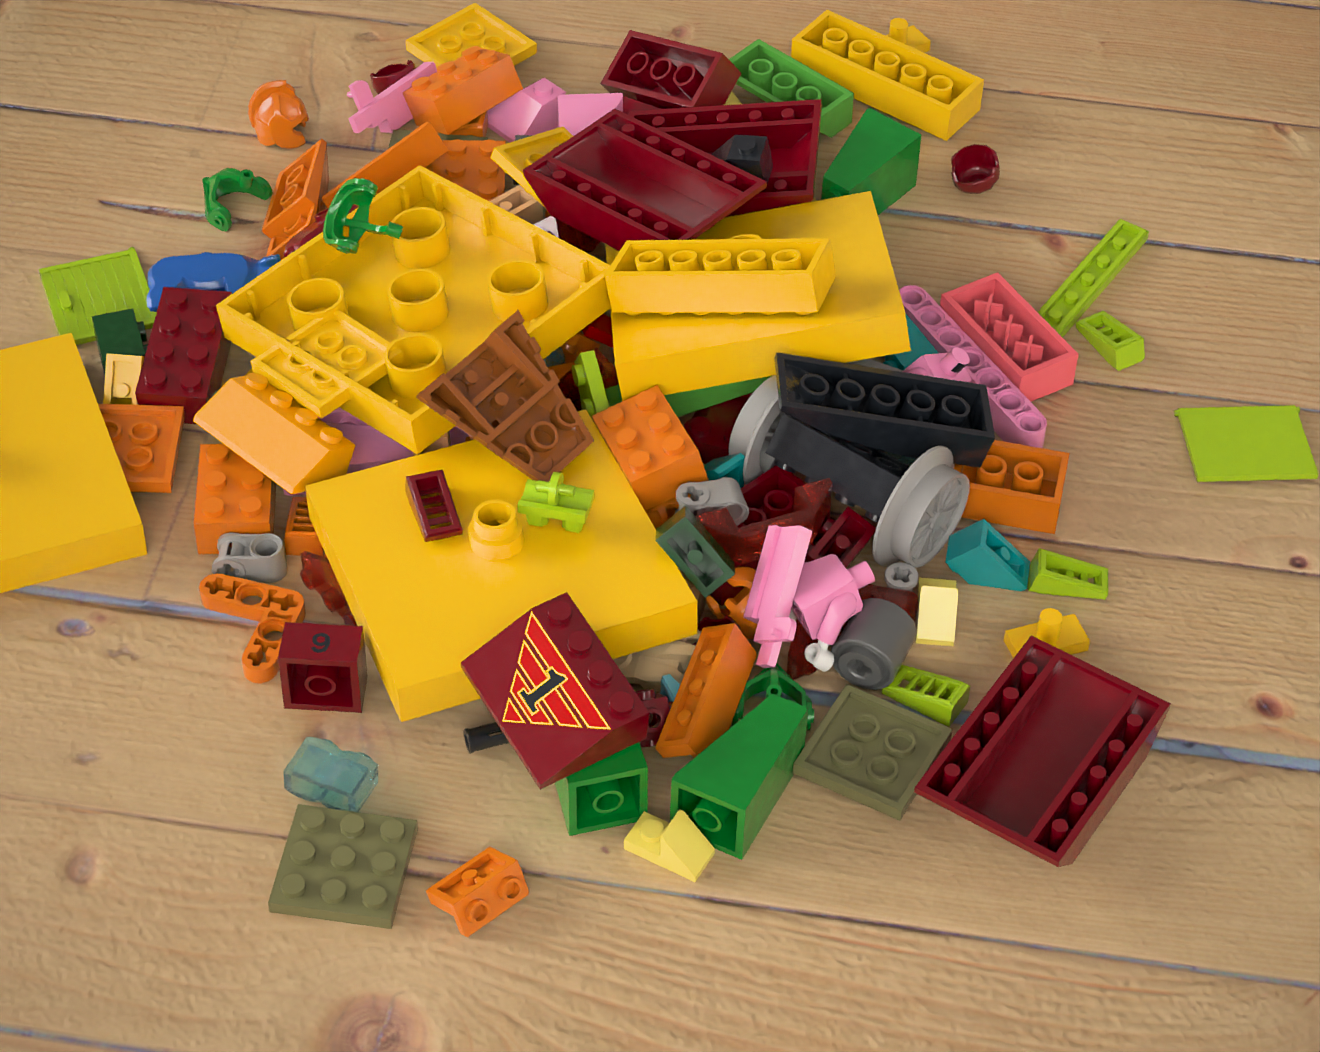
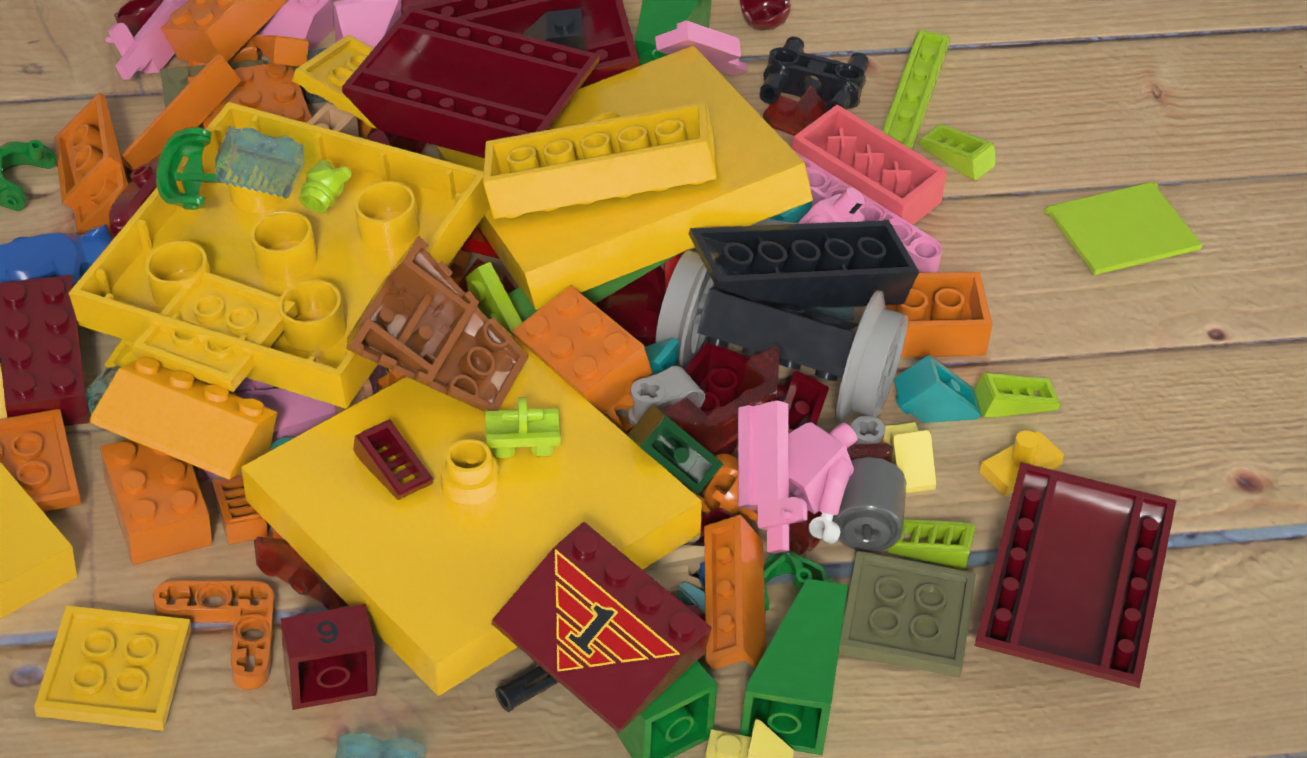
camera: 20 degrees left, 0 degrees up
(143, 636) = (113, 668): none -> yellow plate
(252, 557) = (198, 555): light grey piece -> none
(275, 113) = (32, 75): orange helmet -> none
(412, 220) = (259, 161): none -> clear light blue brick
(464, 250) = (323, 185): none -> lime animal
(500, 130) = (283, 49): none -> orange slope
(889, 196) = (716, 47): none -> bright pink piece
(957, 273) = (794, 116): none -> clear red slope
(994, 245) = (791, 70): none -> black piece

